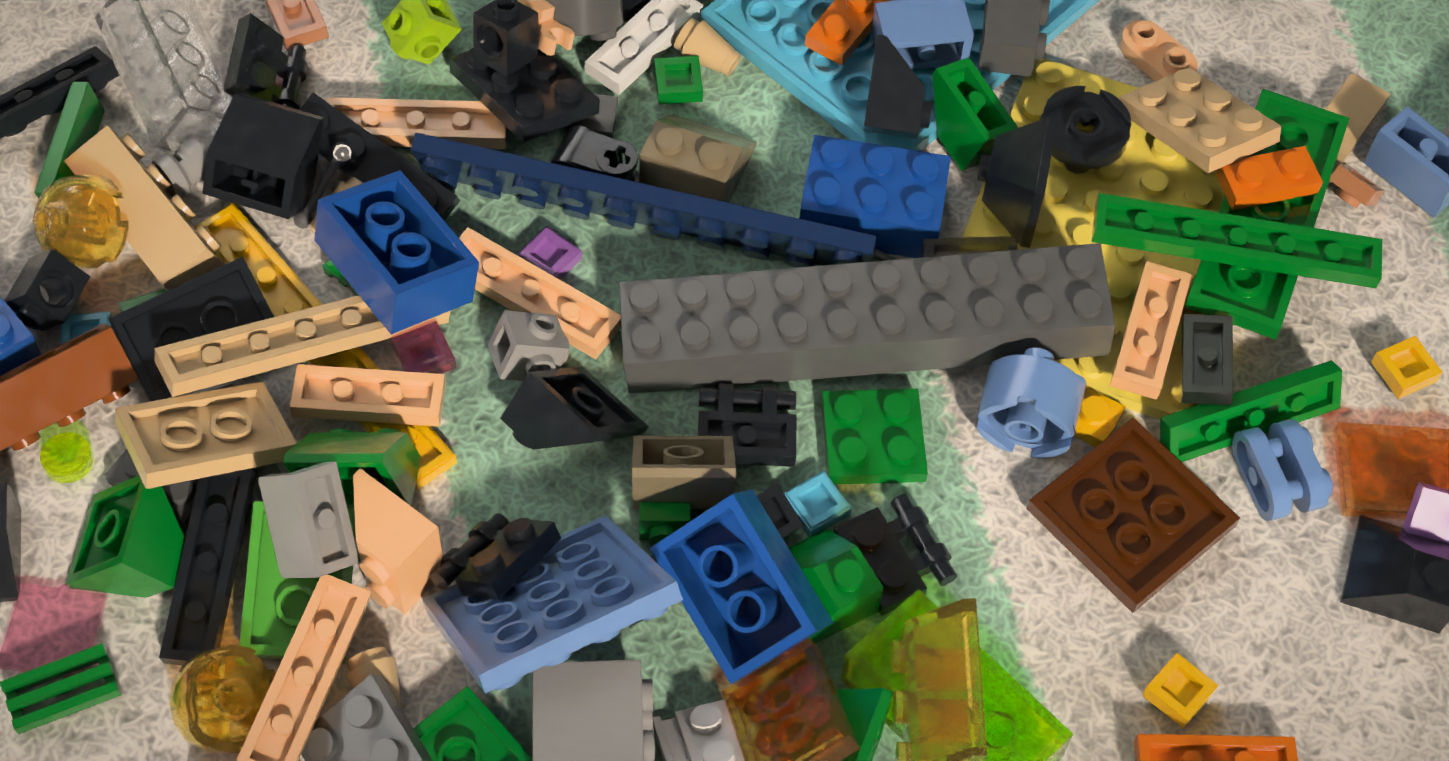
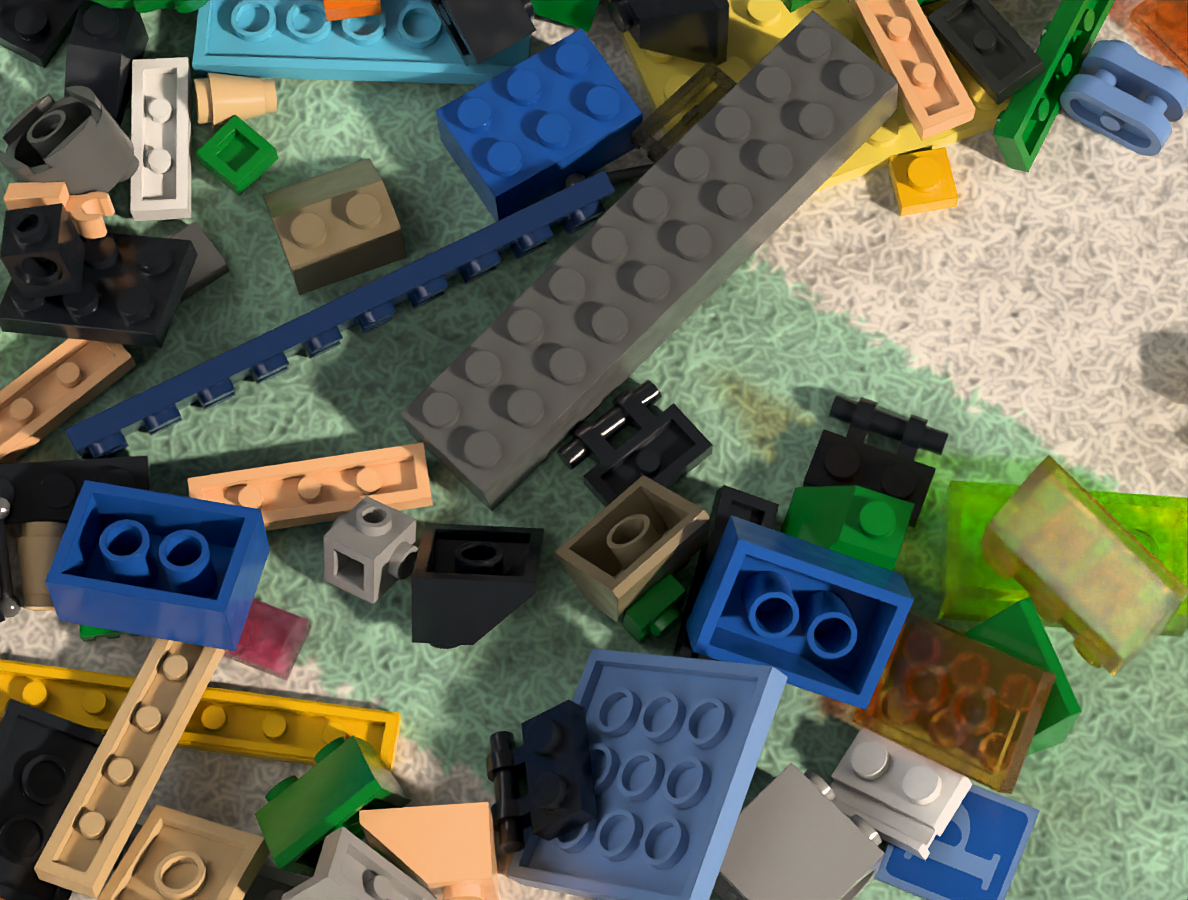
camera: 35 degrees left, 10 degrees up
(368, 395) = (267, 728): light nougat plate -> none
(551, 253) = (287, 436): medium lavender tile -> none
(597, 154) = (238, 306): black piece -> none
(818, 503) = (766, 470): medium azure tile -> none
(873, 436) = (753, 363): green plate -> none
(1030, 403) = (873, 216): medium blue brick -> none
(1132, 514) = (1042, 246): reddish brown plate -> none

